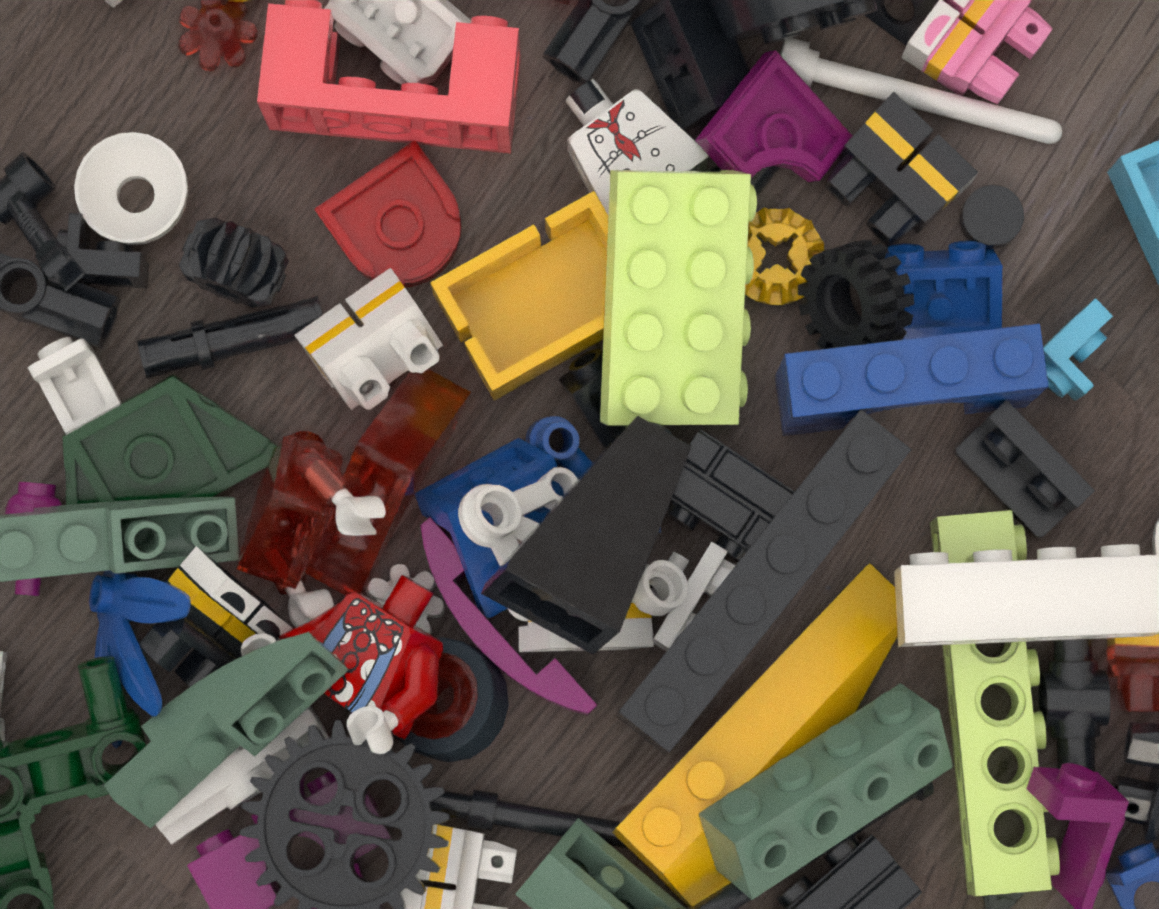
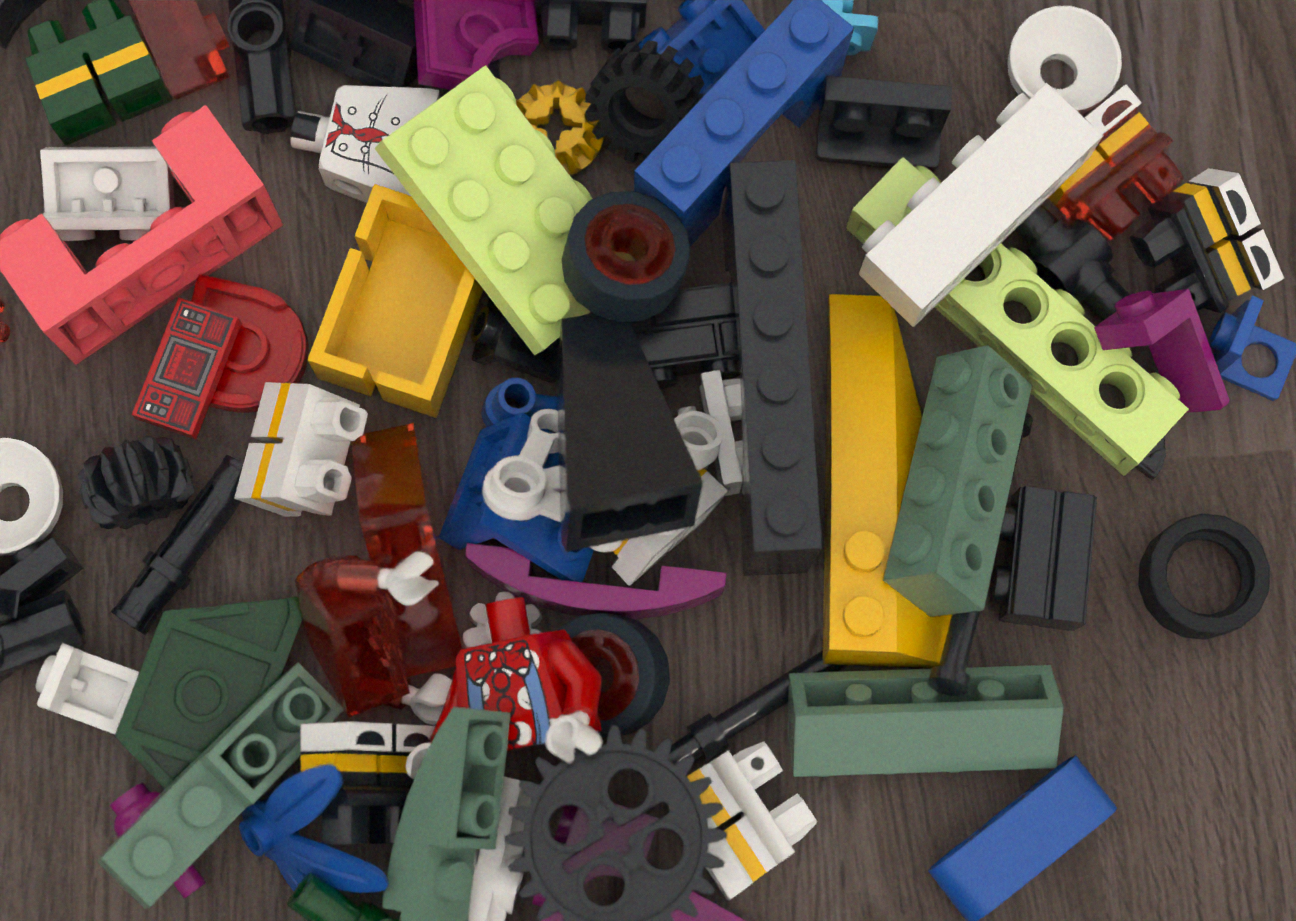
camera: 45 degrees left, 5 degrees down
(343, 207) = (187, 368): none -> tile
(751, 388) = (633, 226): none -> wheel

